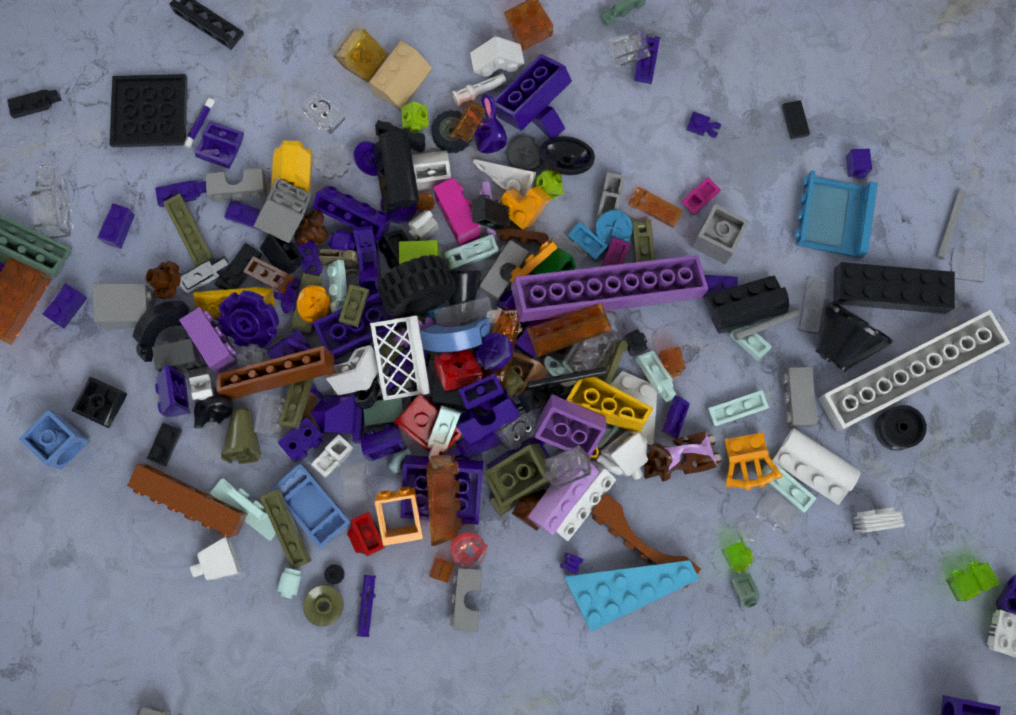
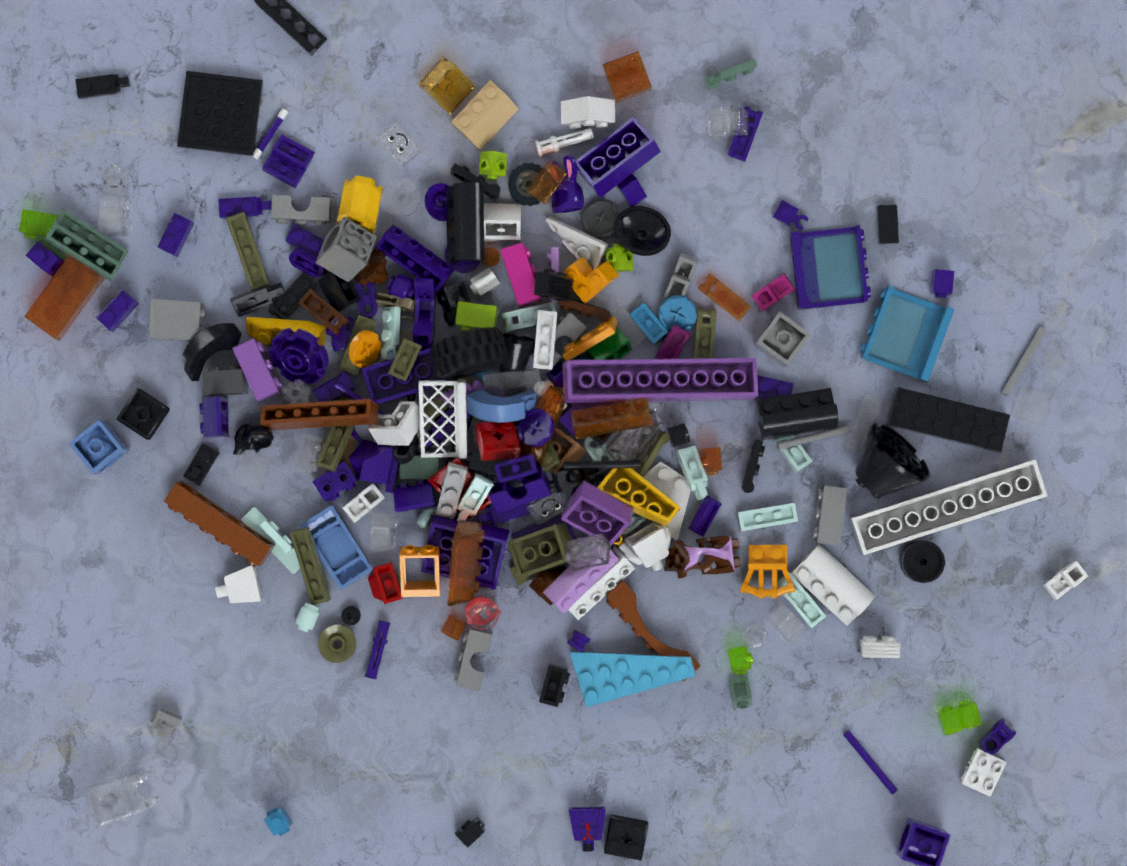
camera: 10 degrees right, 10 degrees up
(164, 279) = (220, 300): reddish brown plant -> none
(200, 383) = (244, 411): white brick -> none
(241, 440) = (277, 471): olive cone -> none
(249, 233) = (306, 262): none -> dark purple plate
(418, 428) = (451, 490): none -> light grey plate
(490, 268) = (545, 340): none -> white plate
(553, 613) = (553, 684): none -> black brick
(713, 361) = (752, 467): none -> black plate
(750, 166) = (830, 267): none -> clear light blue panel
(891, 642) = (870, 762): none -> dark purple bar

